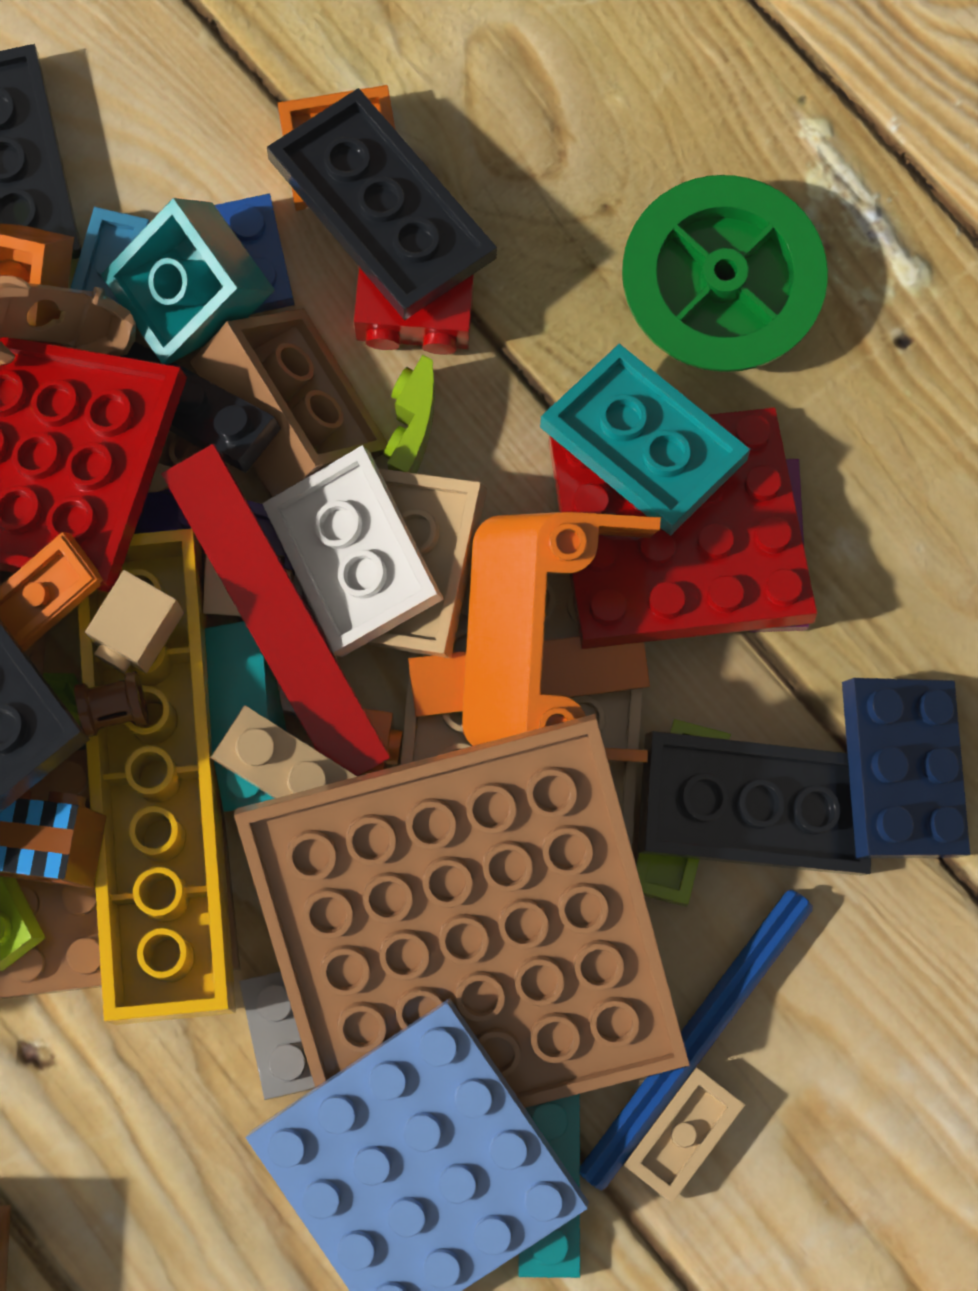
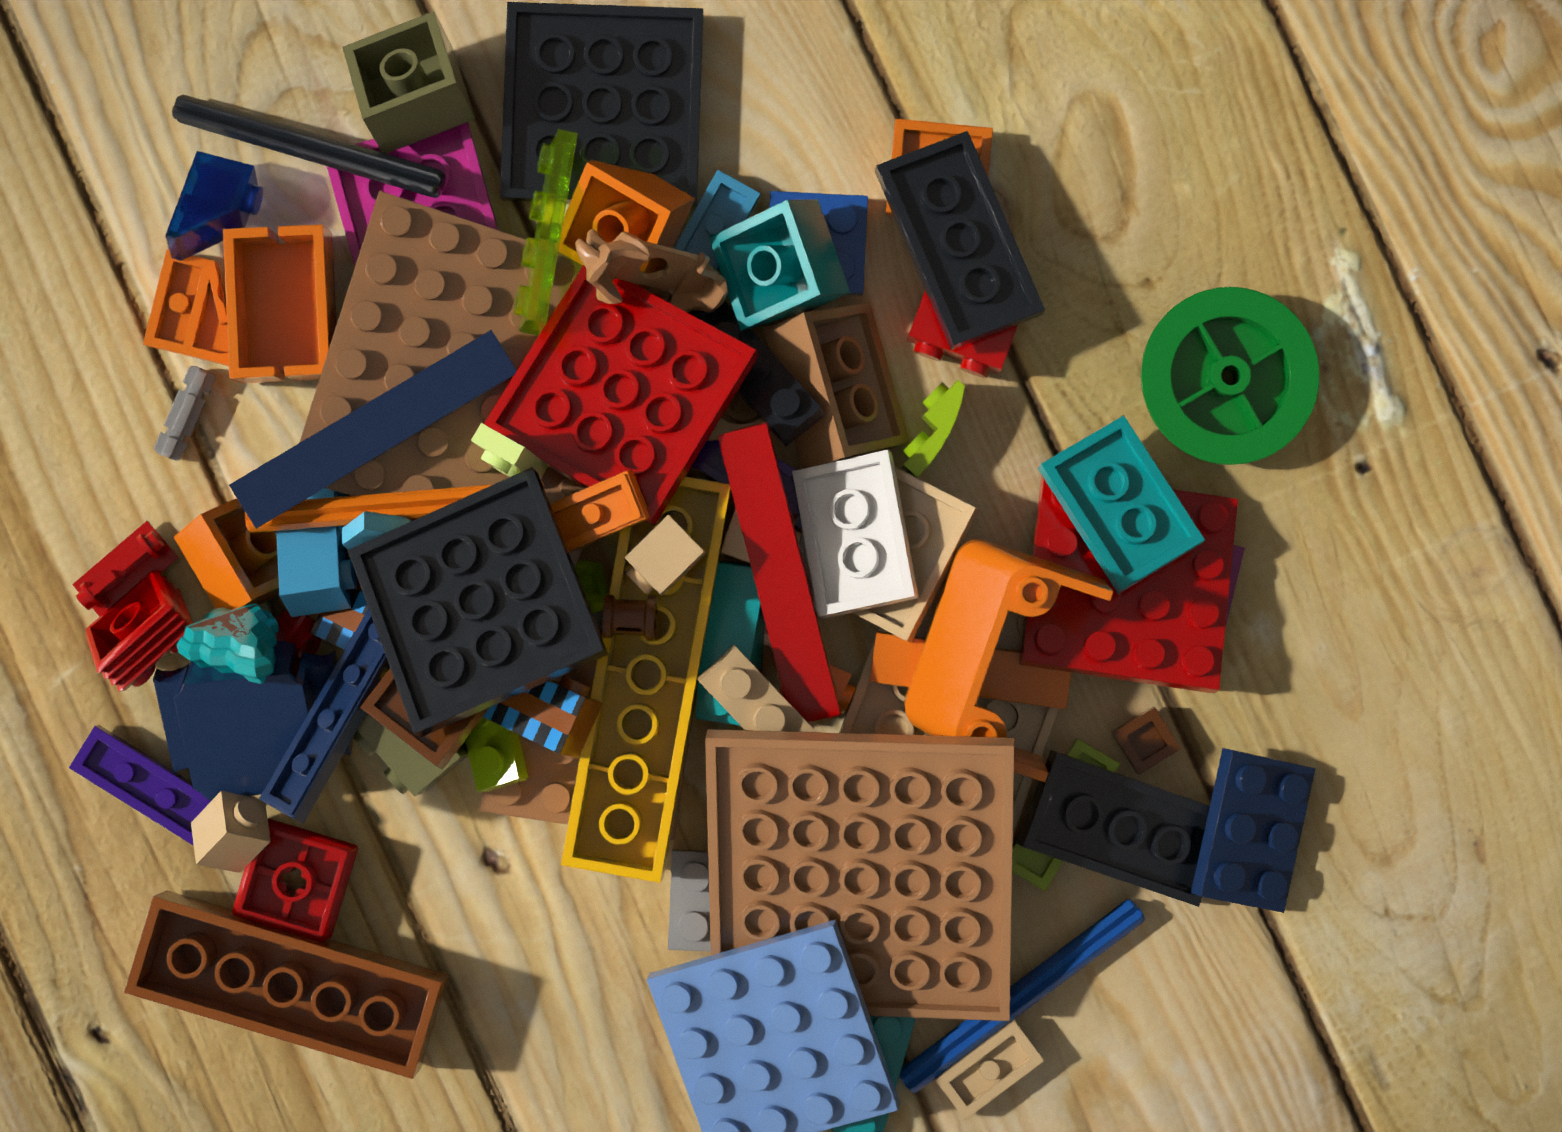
camera: 20 degrees right, 10 degrees up
(752, 701) = (1145, 740): none -> reddish brown plate

